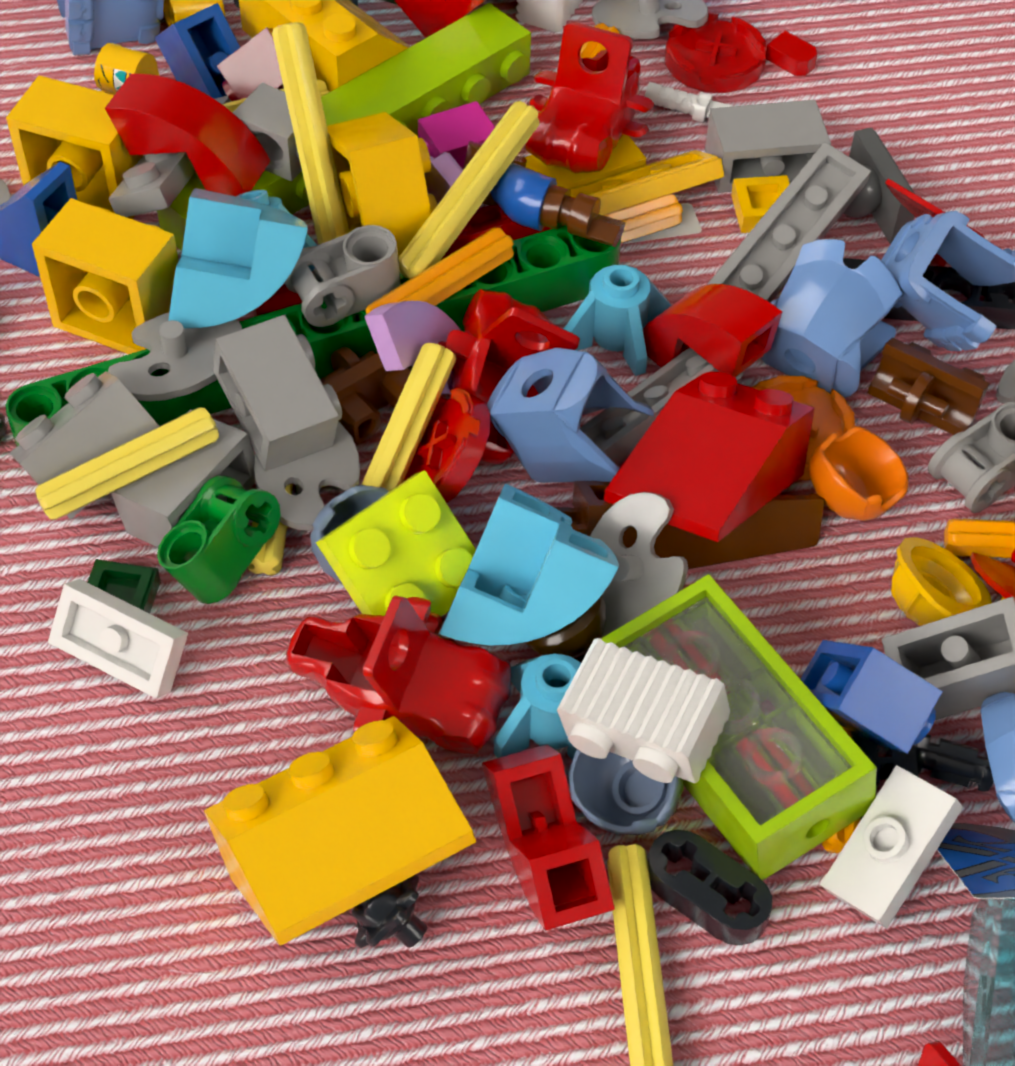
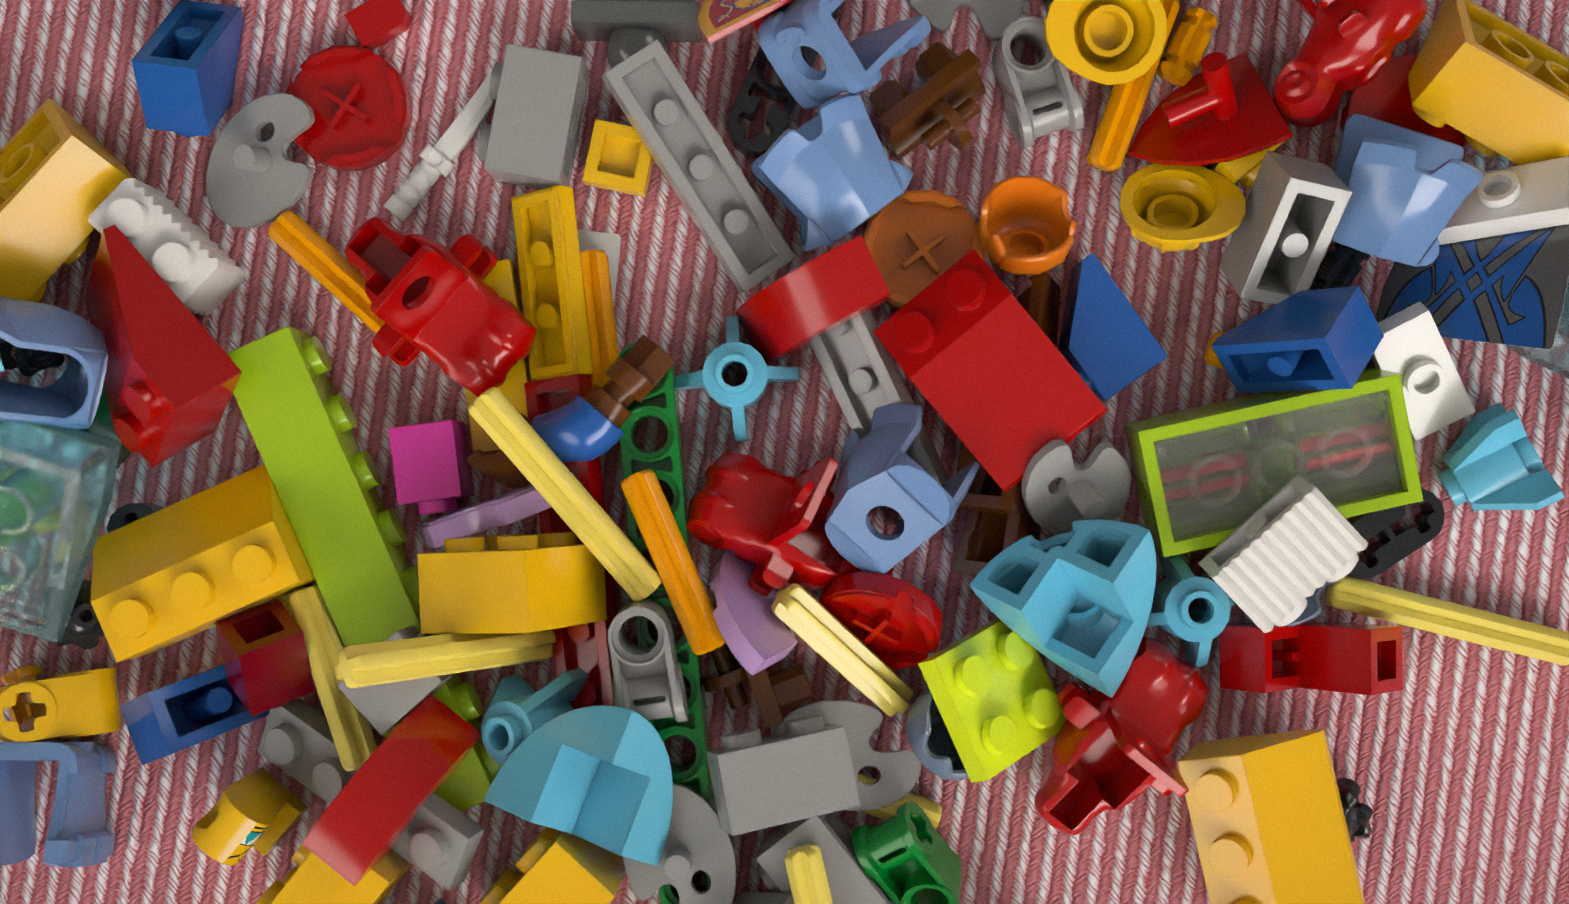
camera: 70 degrees left, 35 degrees up
(786, 566) = (1104, 333): none -> blue slope
(829, 956) = (1497, 466): none -> medium azure brick

